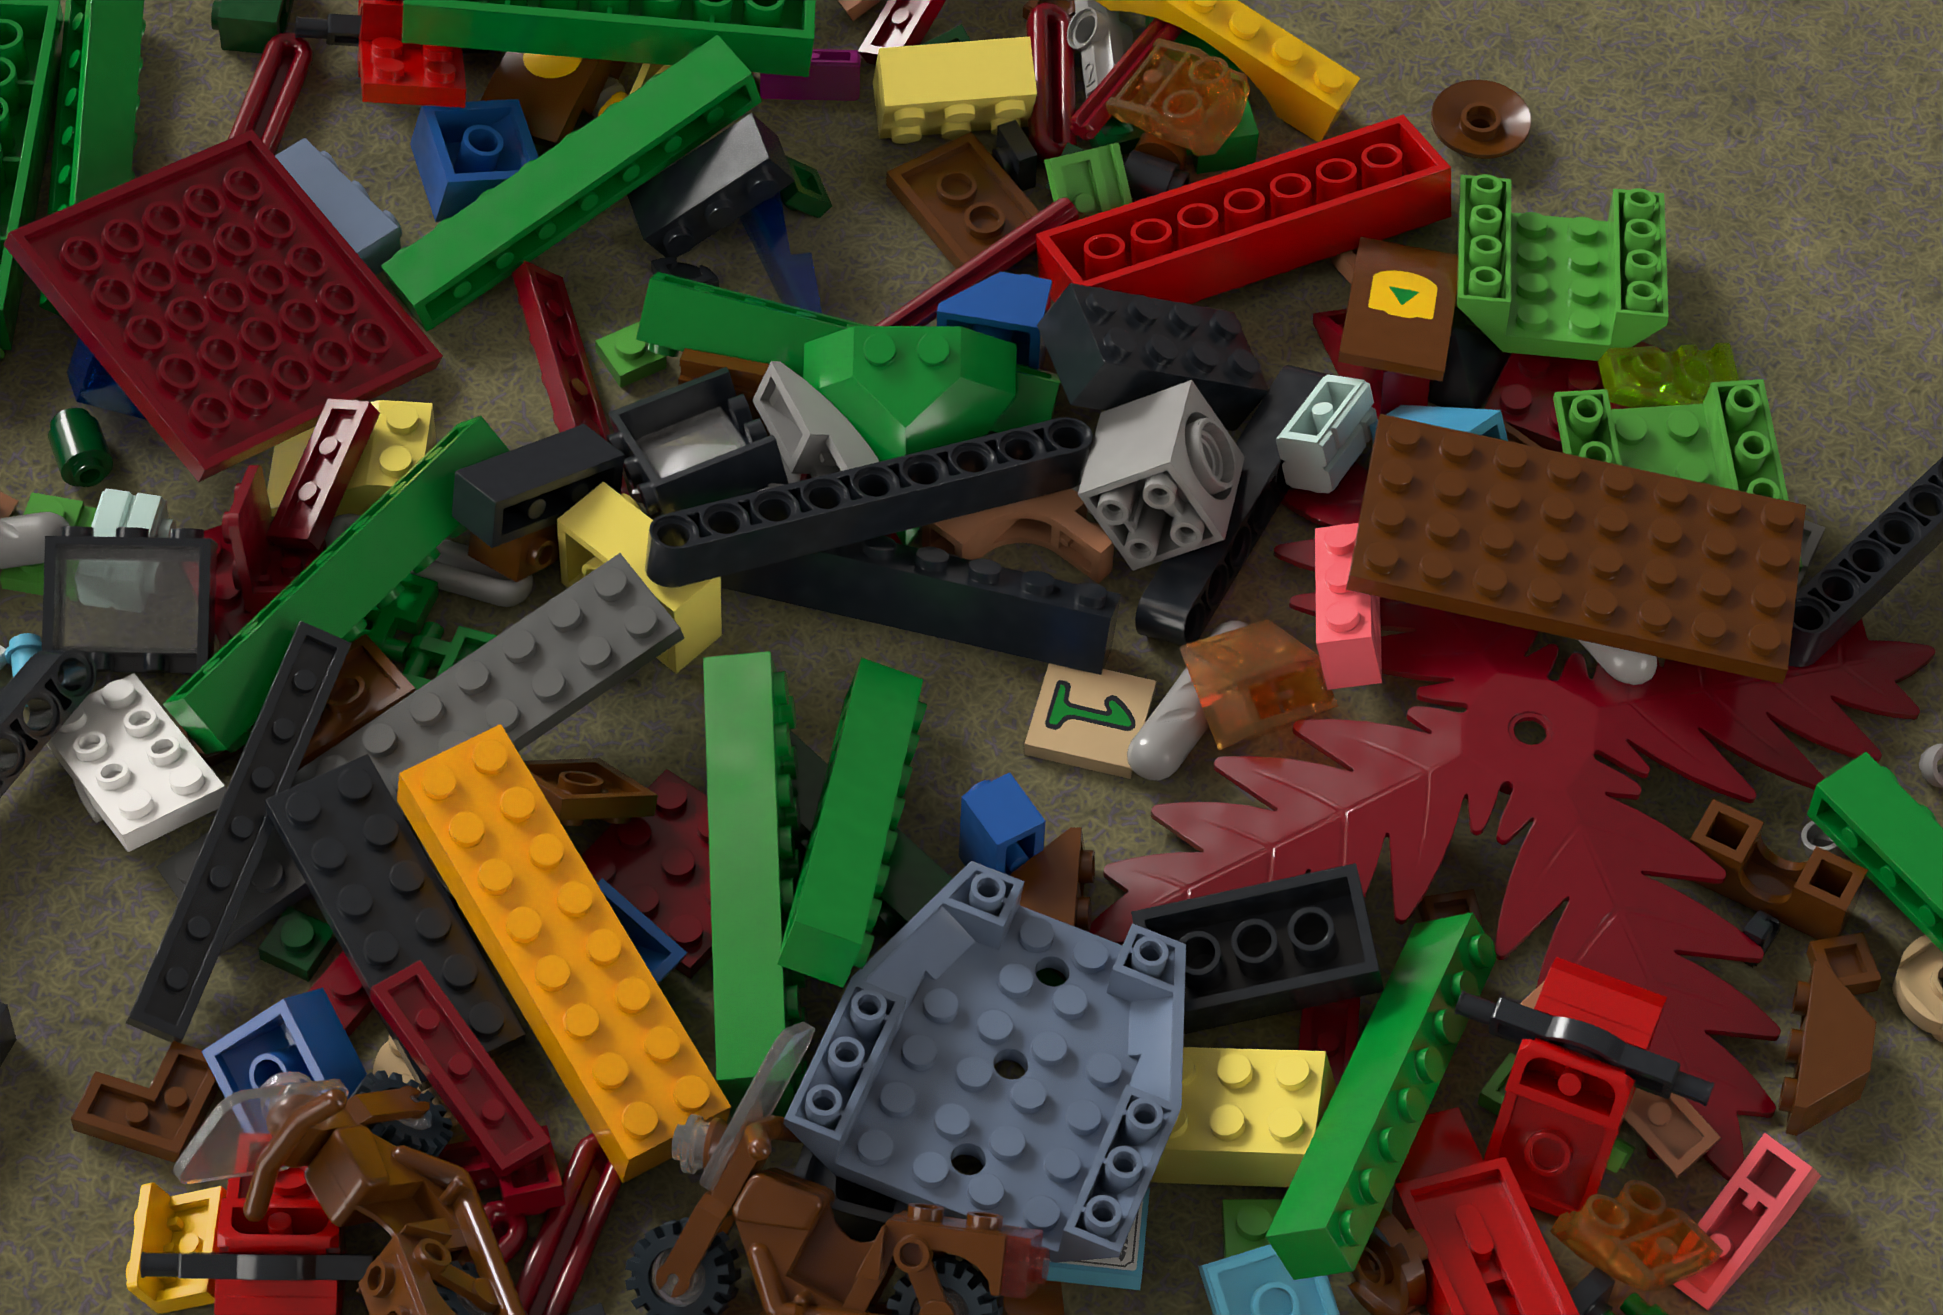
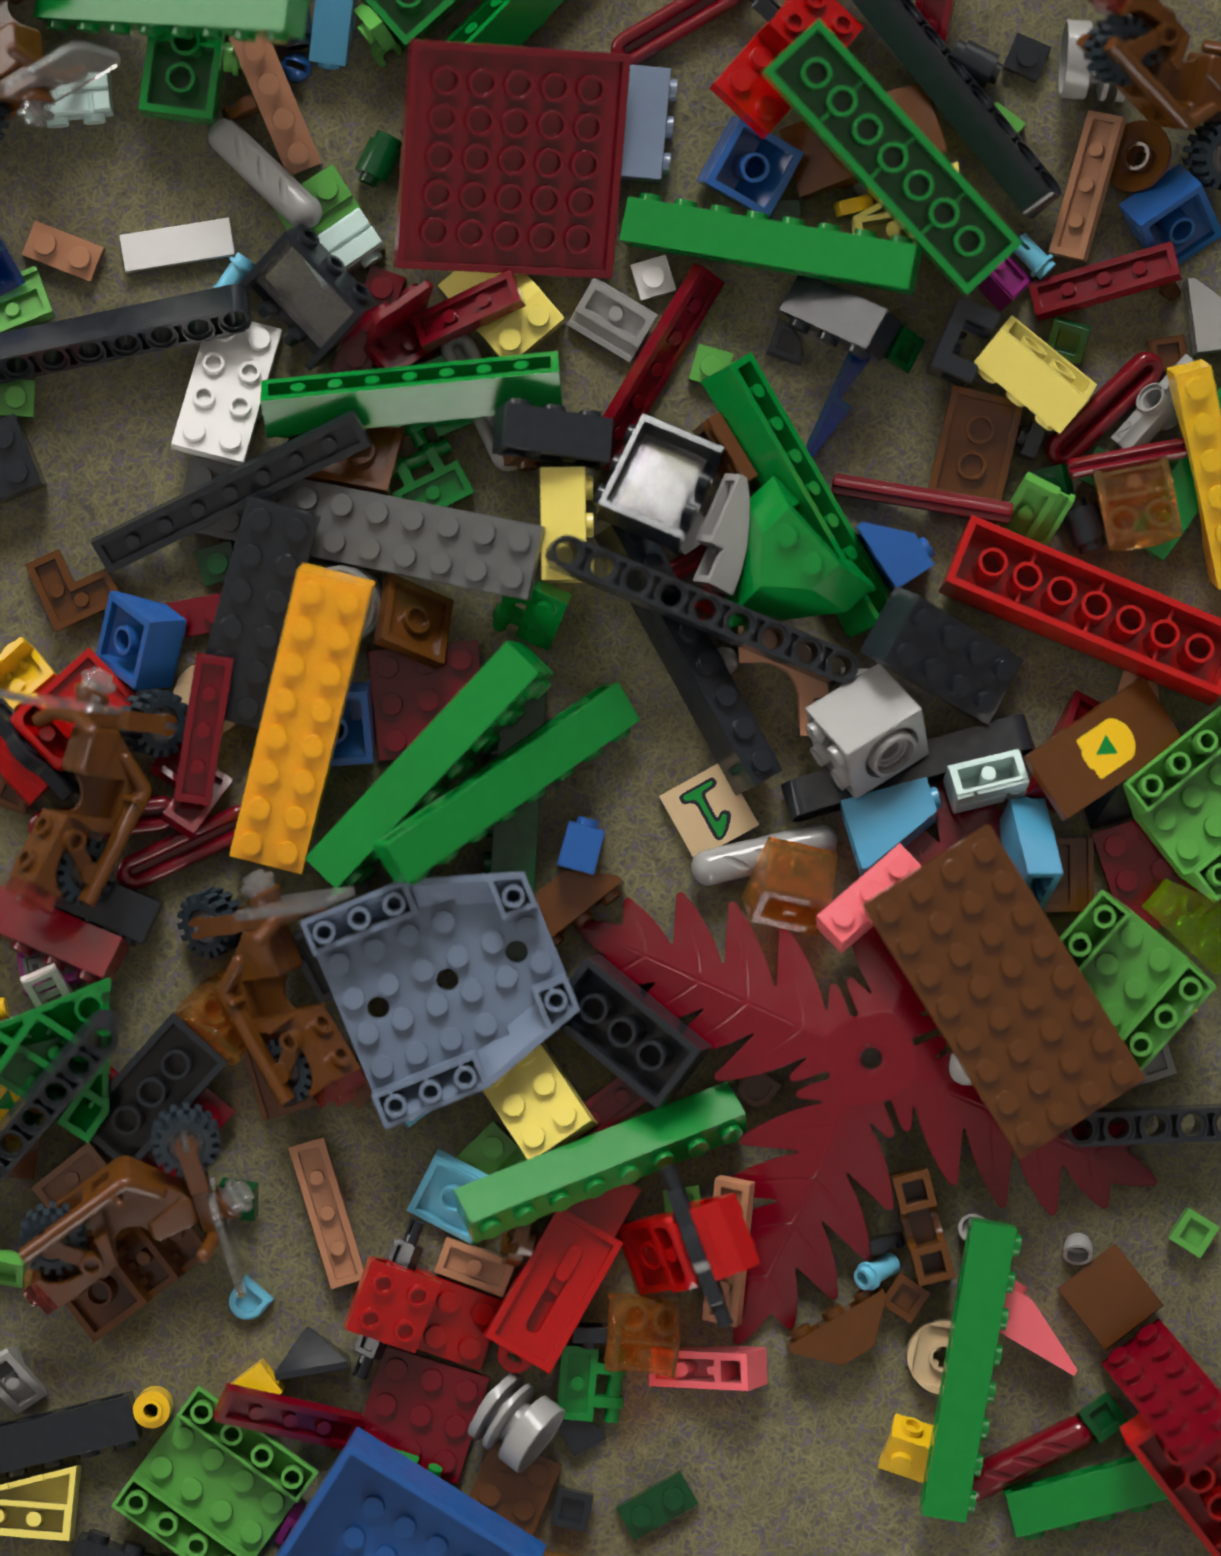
camera: 45 degrees right, 35 degrees up
(484, 330) = (653, 278): none -> white plate
(484, 383) = (612, 319): none -> light grey plate
(701, 639) = (540, 618): none -> green plate
(840, 28) = (1034, 257): none -> medium azure pin
(846, 125) = (965, 316): none -> black panel
(1272, 551) = (887, 818): none -> dark azure slope
(1782, 974) = (871, 1274): none -> medium azure pin

